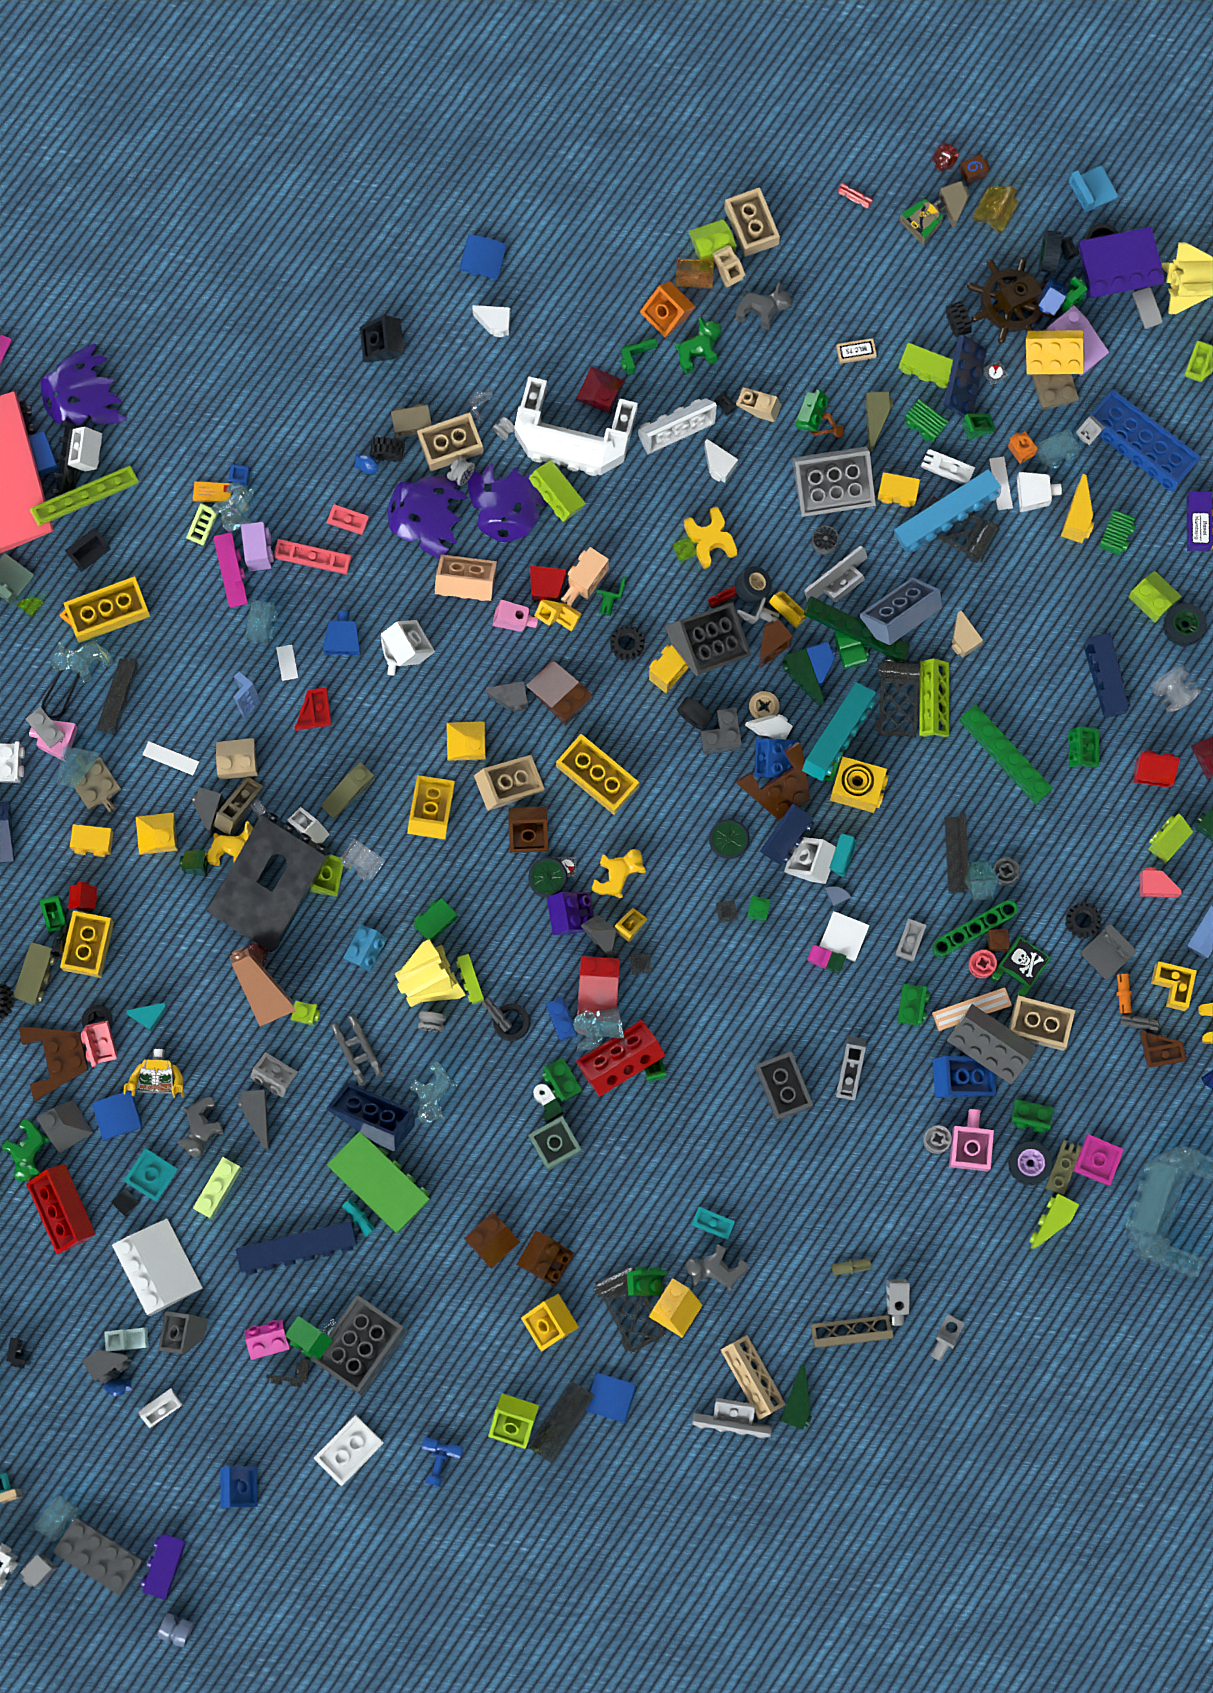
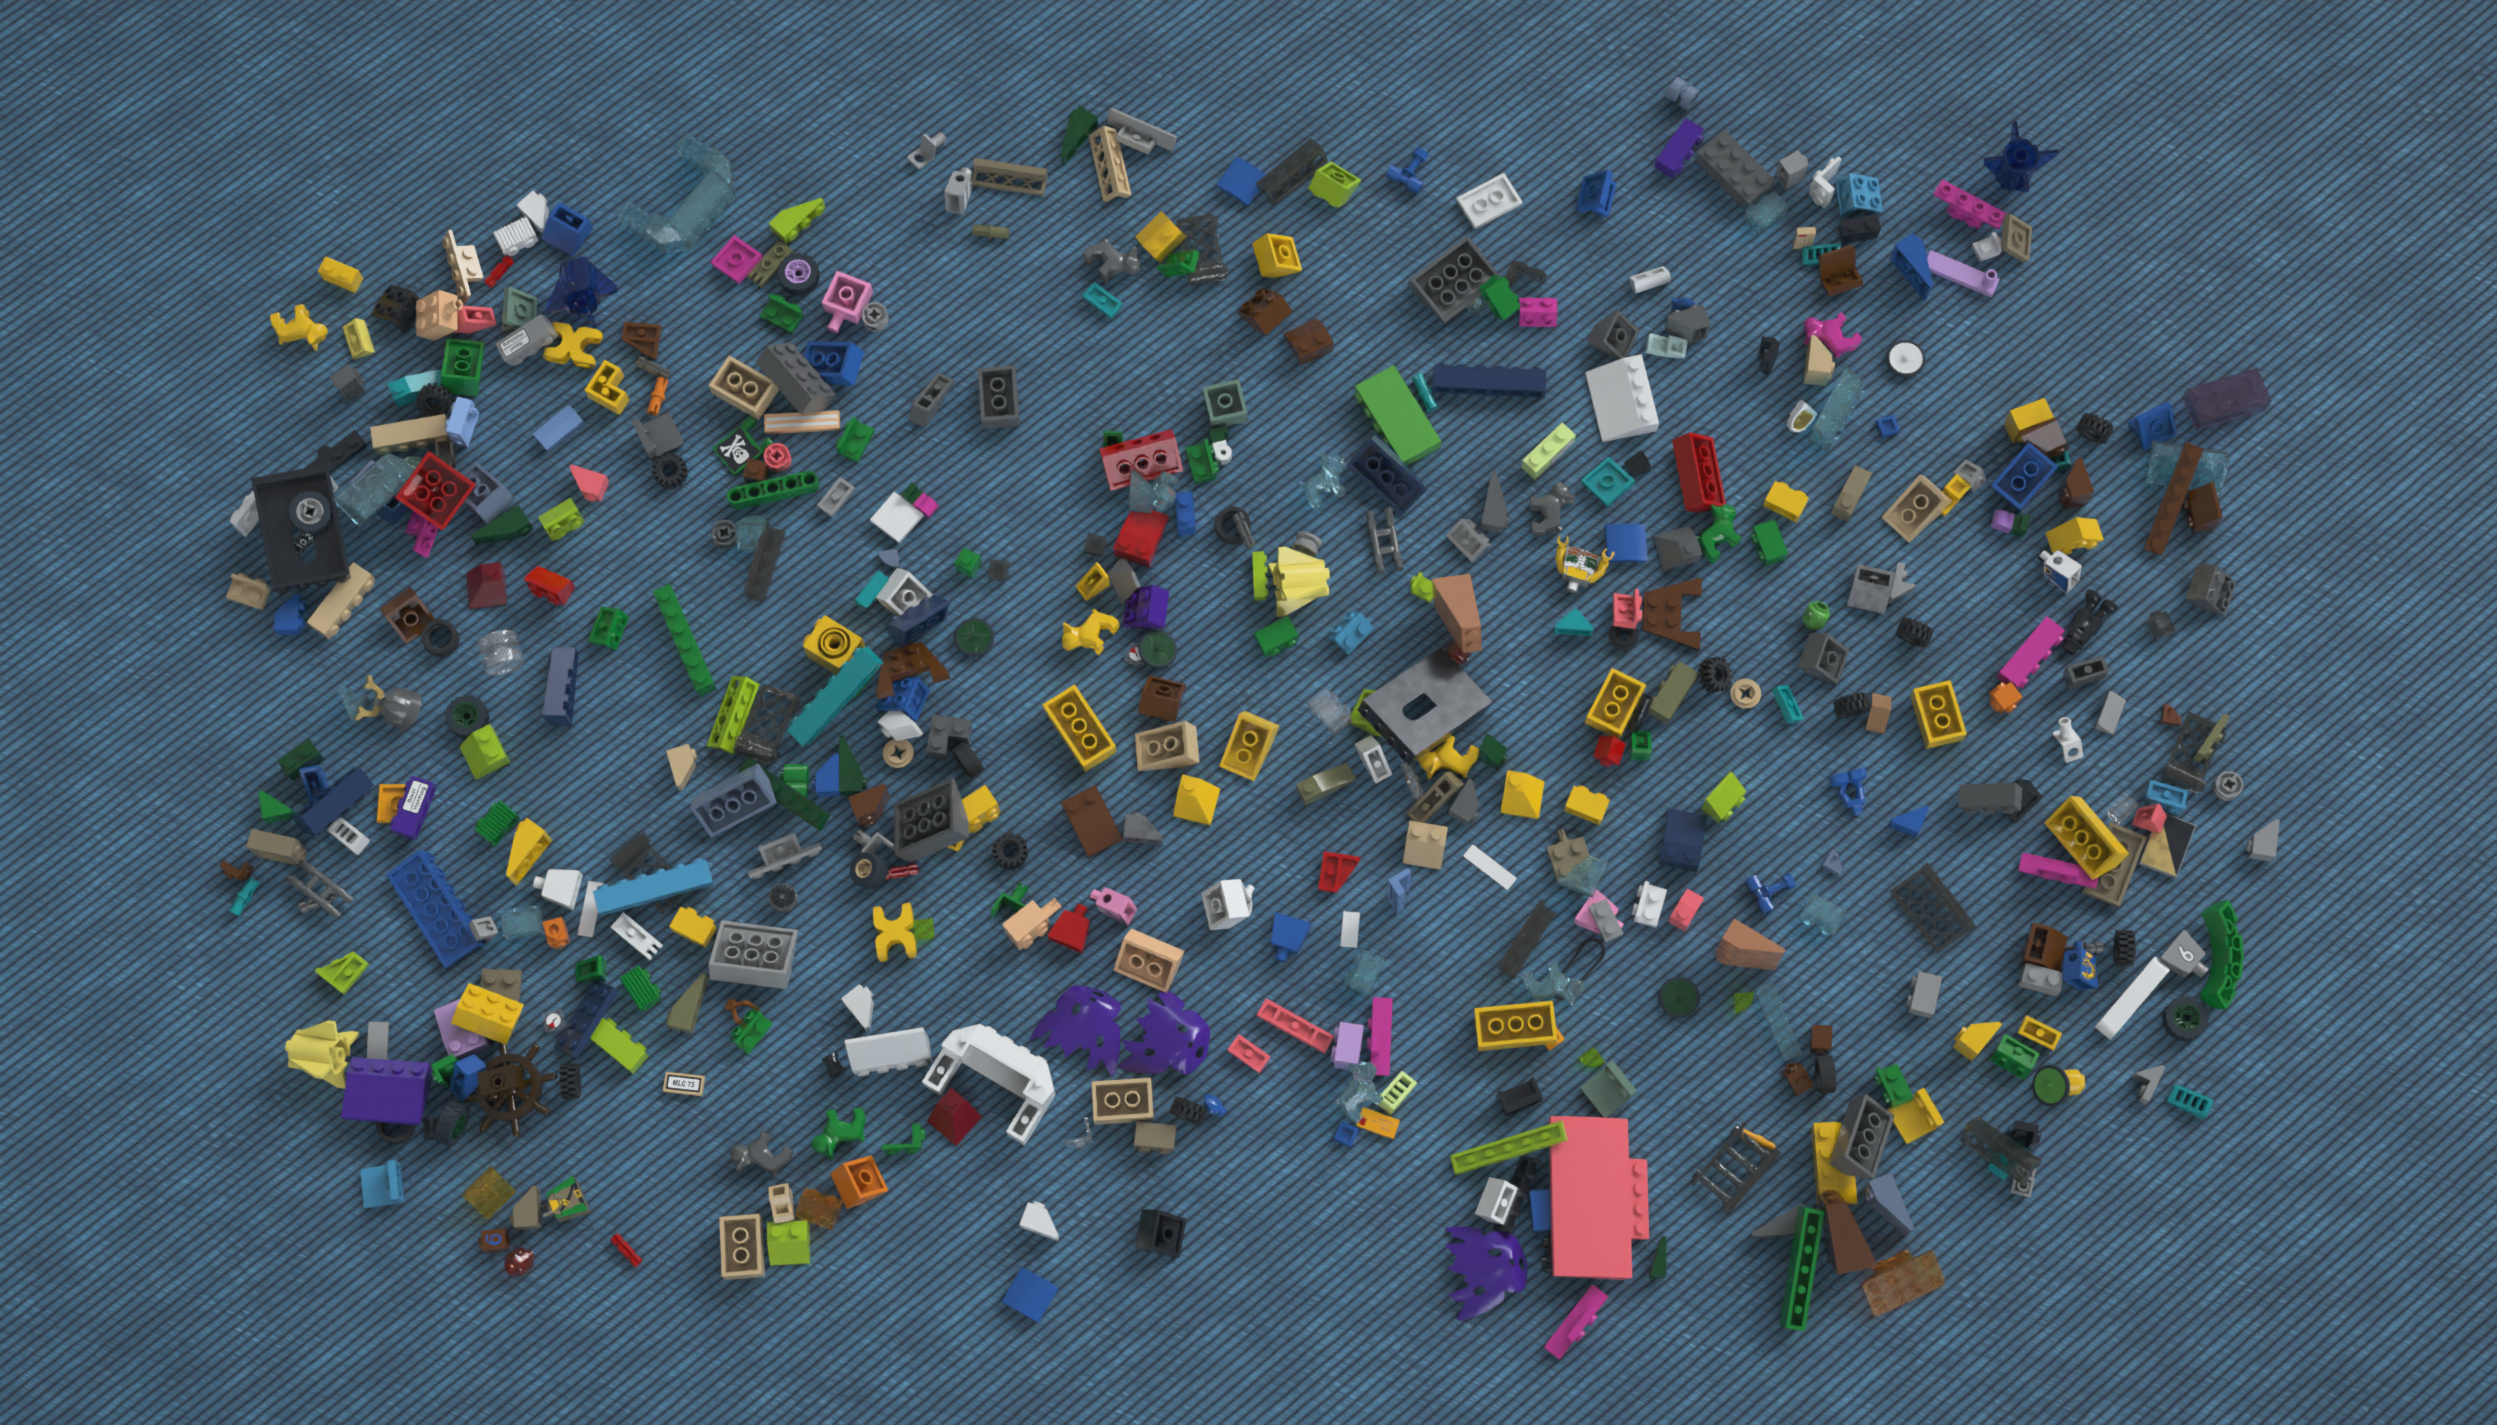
camera: 160 degrees left, 5 degrees down
(461, 471) = (1121, 1067): light grey wheel -> none
(504, 428) = (1064, 1102): light grey wheel -> none
(553, 612) = (1076, 898): yellow slope -> none
(557, 491) = (1031, 1019): lime brick -> none
(759, 404) = (801, 1052): tan slope -> none
(788, 608) = (842, 840): yellow brick -> none

